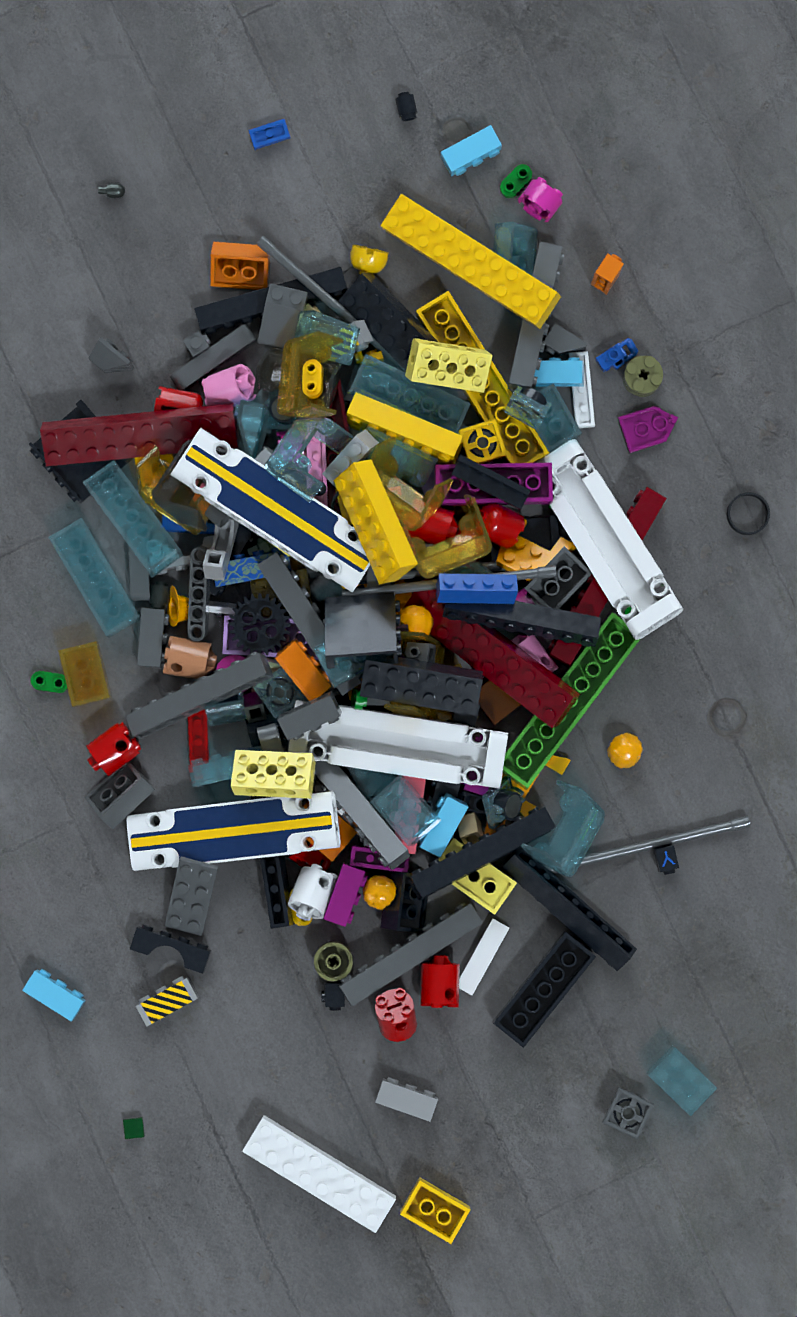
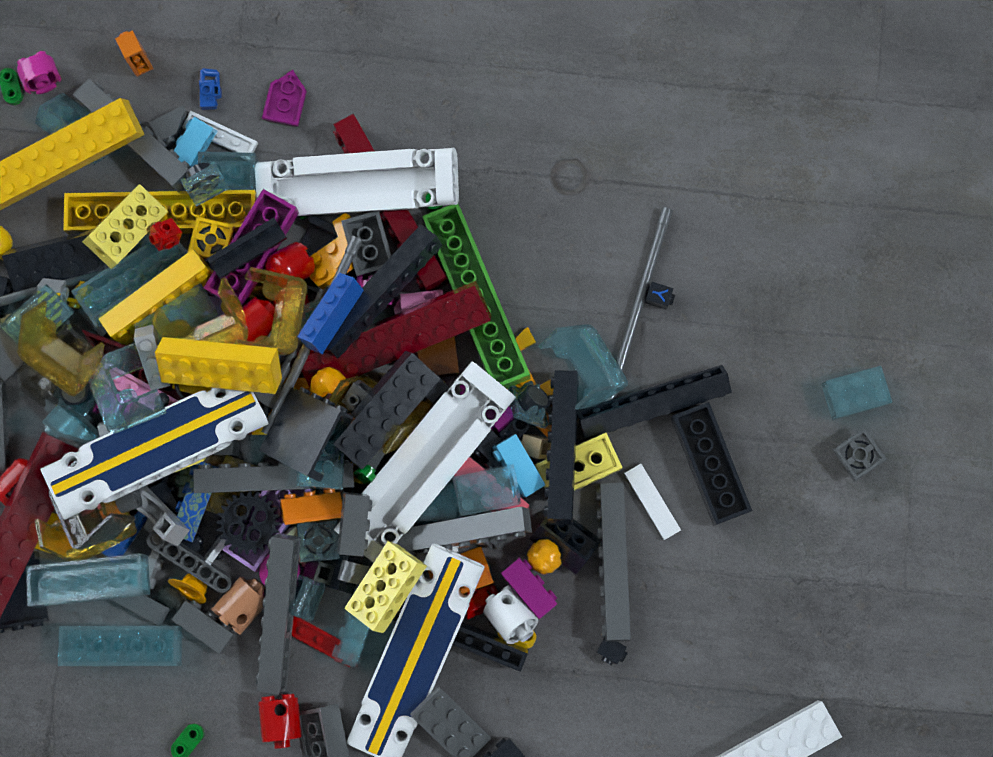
camera: 60 degrees left, 5 degrees down
(85, 674) = (199, 705): clear yellow brick -> none
(229, 386) = (26, 426): bright pink cylinder -> none
(312, 378) = (62, 348): yellow plate -> none
(323, 966) = (592, 633): olive brick -> none
(366, 858) = (512, 546): magenta brick -> none
(396, 1015) = (660, 605): red cylinder -> none
(407, 1099) = (738, 640): light grey brick -> none
(435, 1210) = (850, 672): yellow brick -> none
(440, 982) = (654, 550): red cylinder -> none
(461, 403) = (165, 234): none -> red brick
(625, 750) = (546, 276): light orange hair -> none
(646, 365) = (246, 71): olive brick -> none
(758, 497) = (408, 41): black tyre -> none

